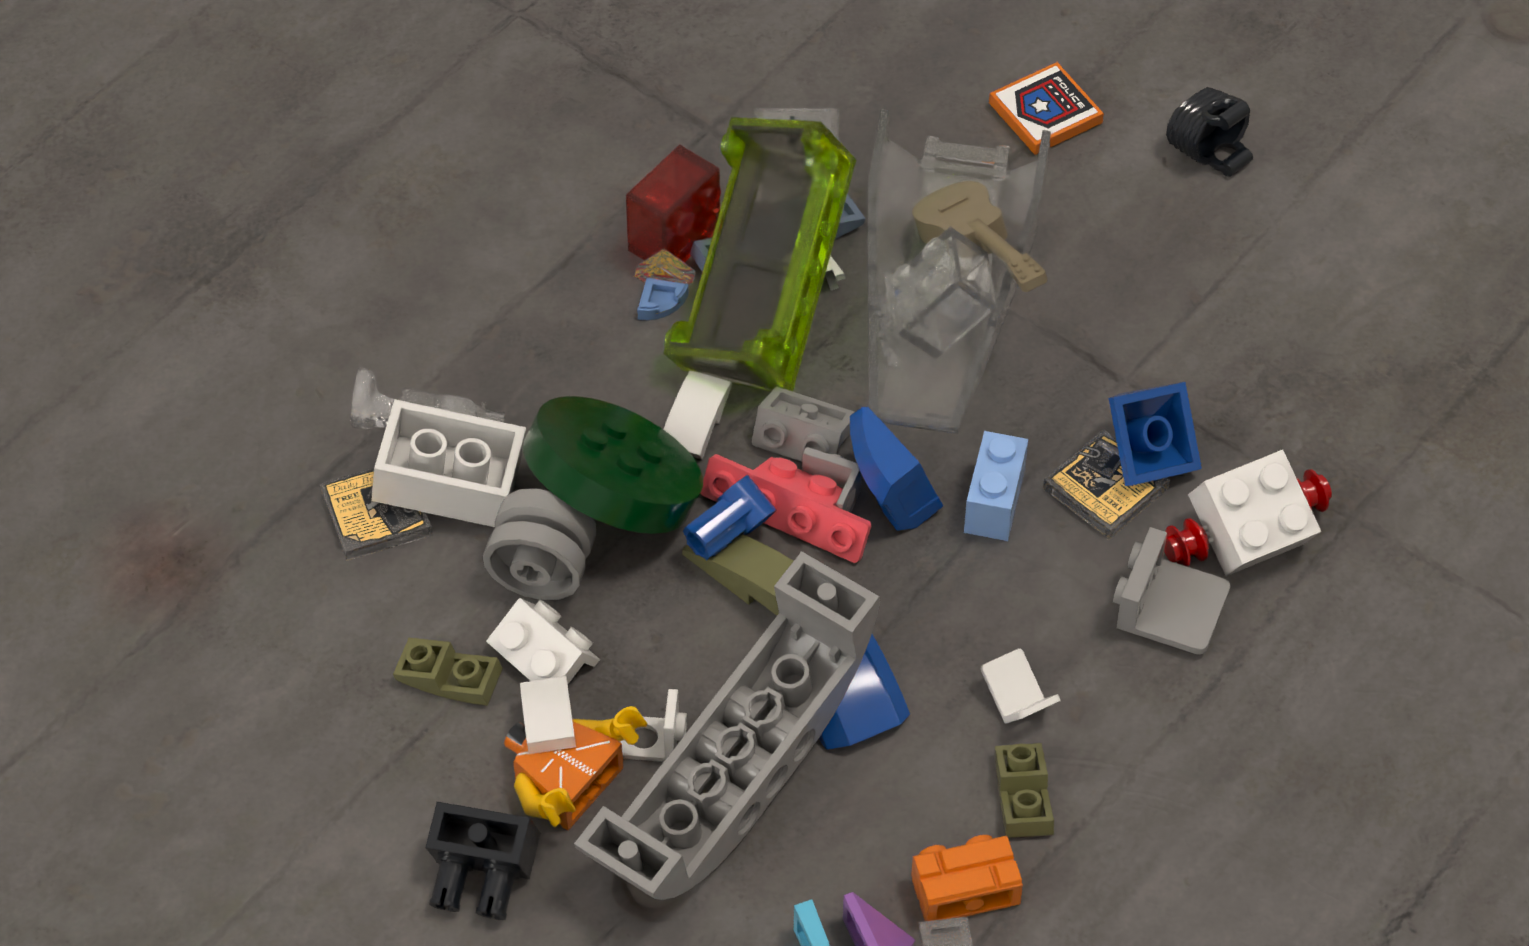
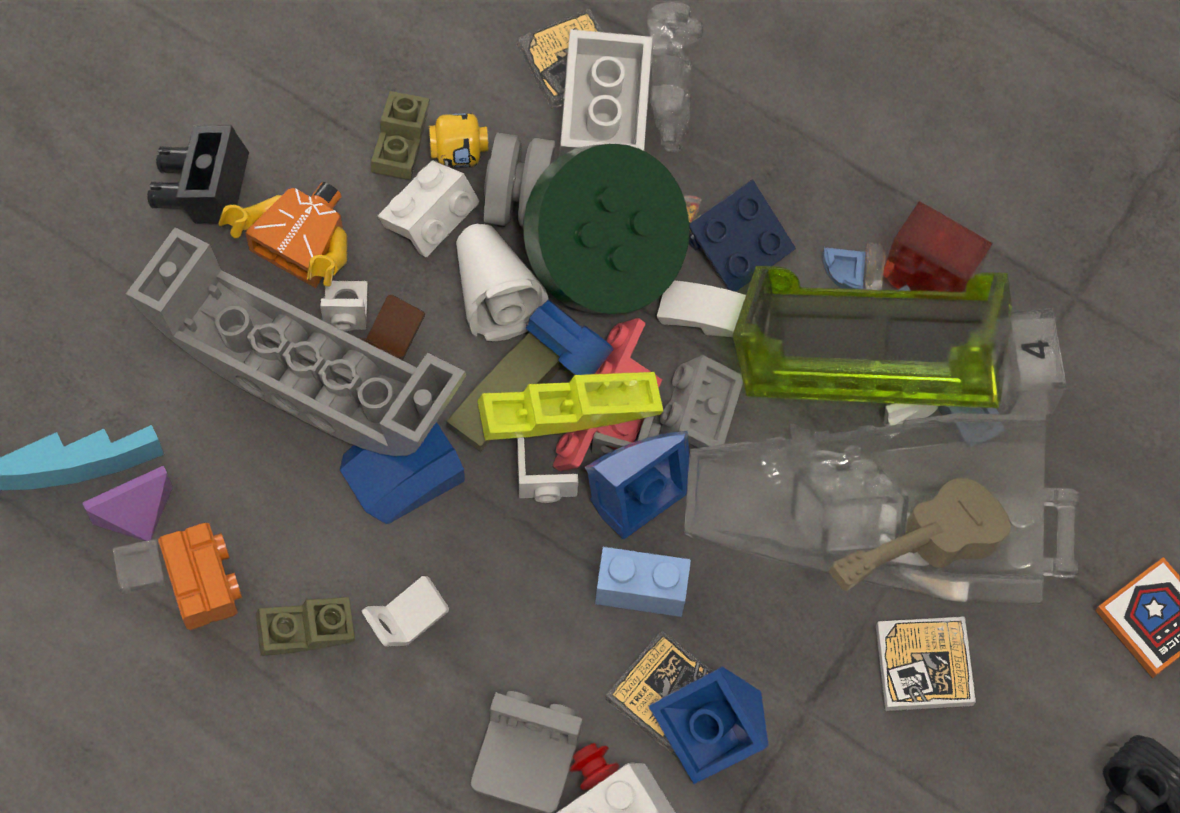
camera: 80 degrees right, 15 degrees up
(467, 613) = (458, 140): none -> yellow head
(547, 715) = (341, 205): white slope -> none
(615, 373) = (740, 236): none -> dark blue hinge
(647, 583) = (495, 285): none -> white cone
(693, 684) = (395, 327): none -> reddish brown bracket
(810, 501) = (570, 407): none -> neon yellow slope
(877, 574) = (543, 487): none -> white bracket
(1085, 281) = (925, 663): none -> tile

